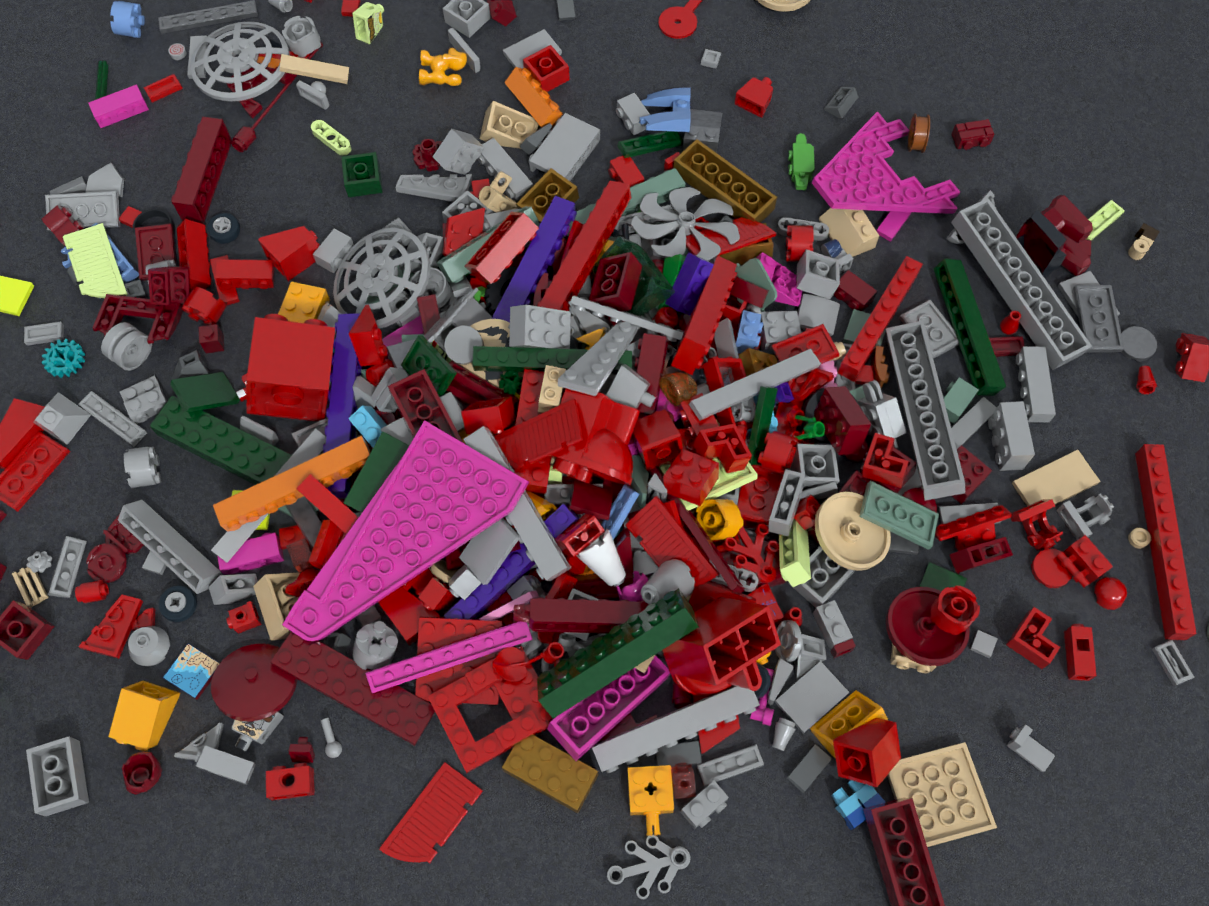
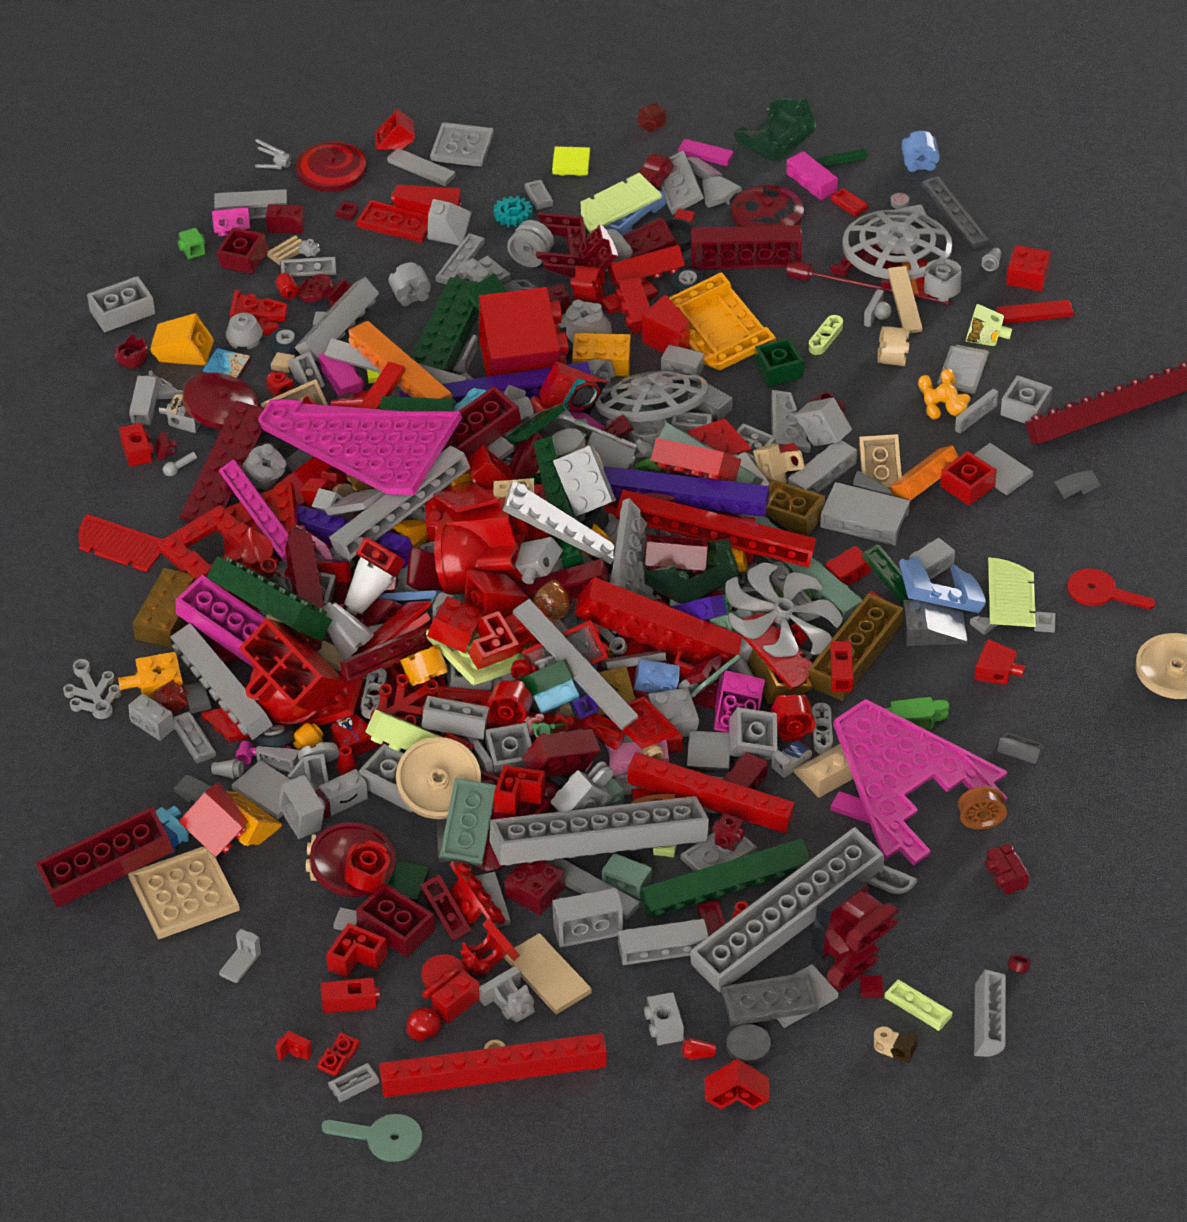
camera: 80 degrees right, 20 degrees down
(41, 118) = (788, 126): none -> clear green windscreen
(45, 183) = (706, 152): none -> dark pink tile
(148, 150) = (767, 207): none -> dark red dish
(206, 611) = (280, 362): none -> tan tile
(239, 326) = (585, 318): none -> light grey brick
(306, 203) = (720, 322): none -> light orange slope
(371, 88) = (893, 346): none -> tan brick
(402, 51) = (966, 365): none -> light grey window
(676, 73) = (1010, 594): none -> yellowish green piece
(705, 97) = (982, 624): none -> light grey tile
(764, 191) = (841, 666): none -> red brick
(859, 663) = (301, 806): none -> light grey brick
(925, 311) = (728, 831): none -> dark red brick
(1002, 597) = (396, 919): none -> dark red brick
(1066, 147) = (1019, 963): none -> dark red tile
(1116, 176) = (989, 1014): none -> light grey brick
(1124, 393) = (664, 1019): none -> light grey brick
(1137, 710) = (295, 1045): none -> red bracket
(1145, 674) = (340, 1054): none -> red slope

